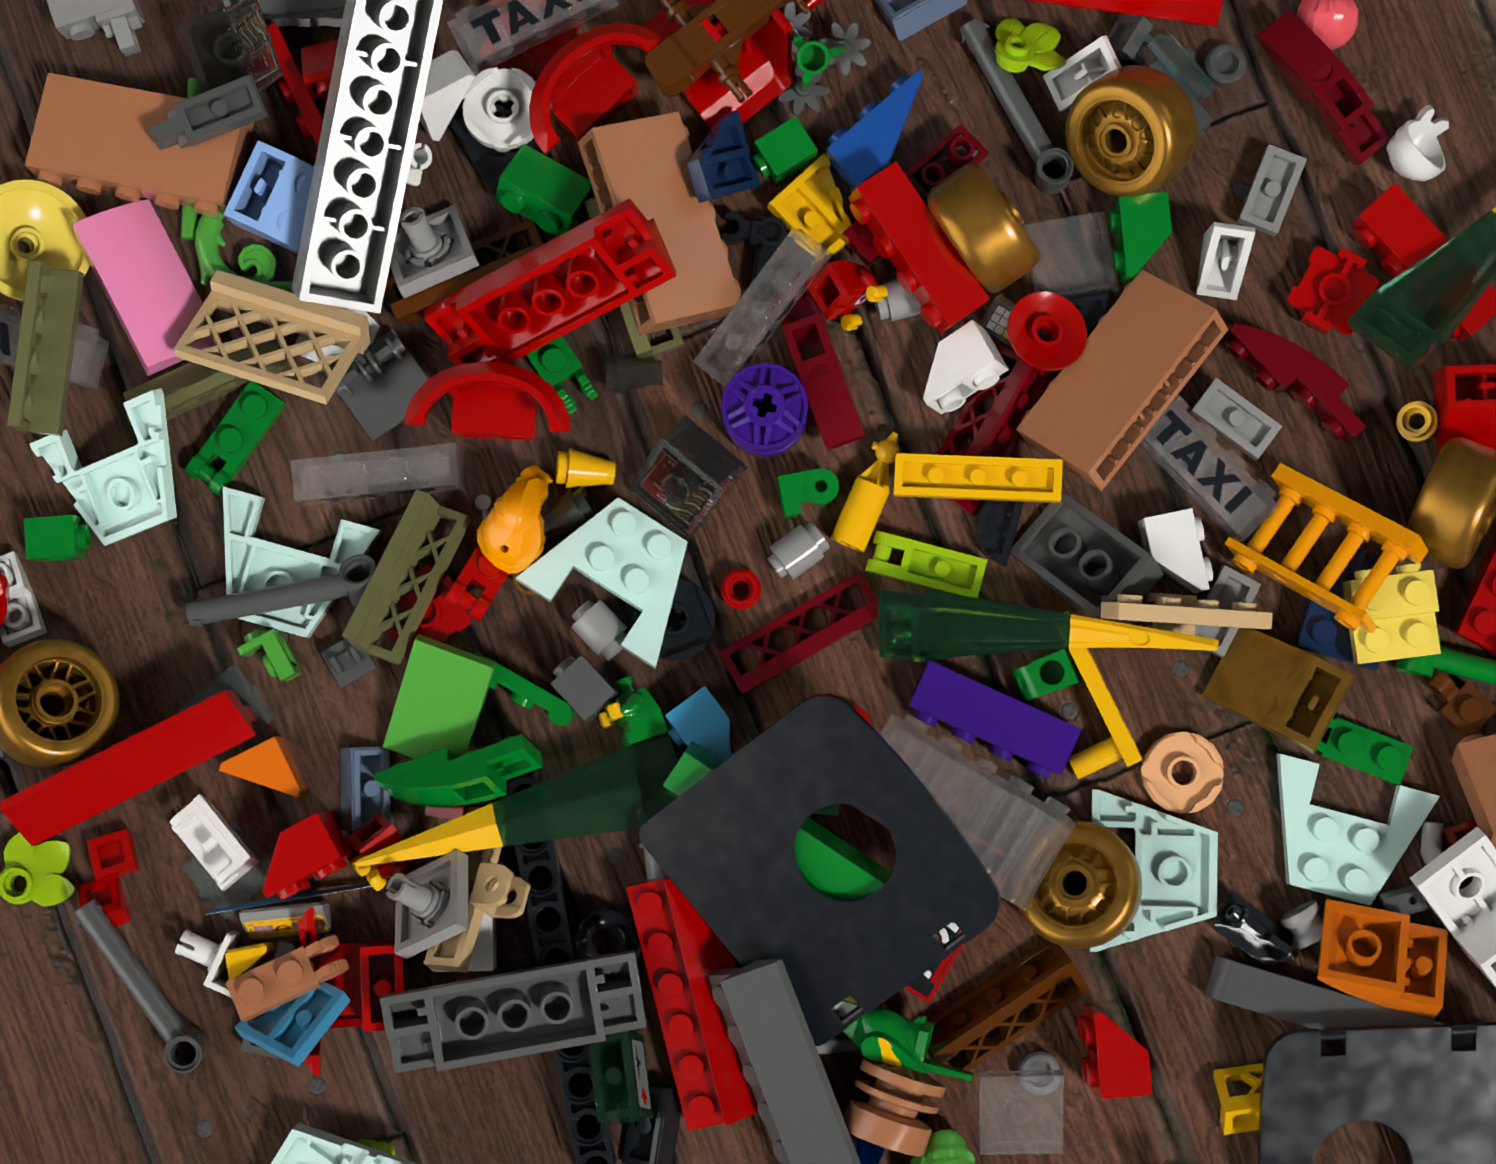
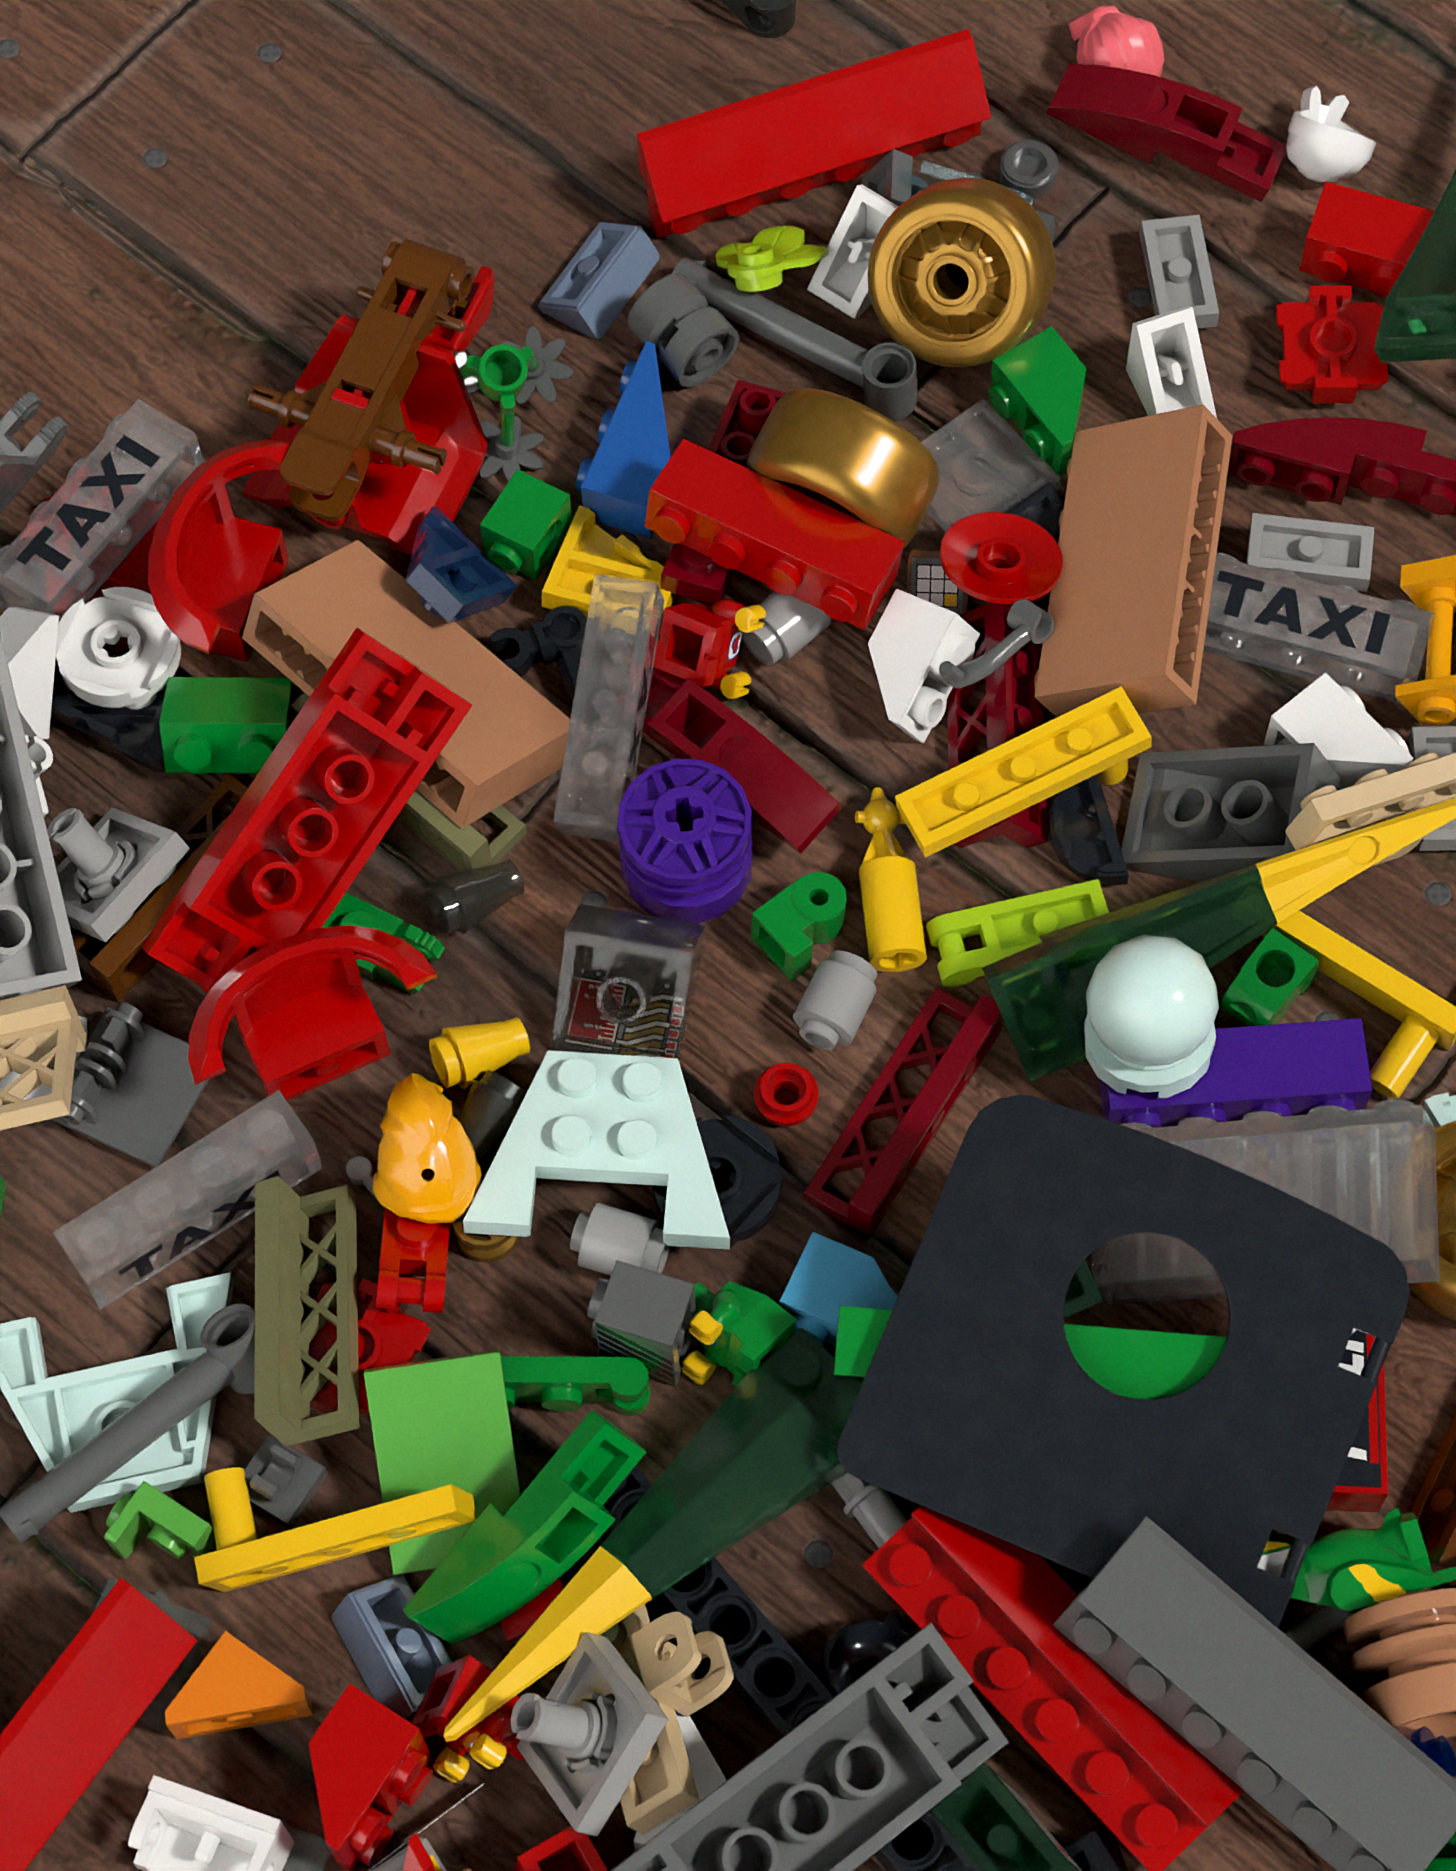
camera: 30 degrees left, 20 degrees down
(305, 698) = (248, 1560): none -> yellow piece
(947, 67) = (687, 333): none -> dark grey wheel
(957, 672) = (1151, 1016): none -> light aqua tile
(1038, 386) = (1028, 624): none -> dark grey piece

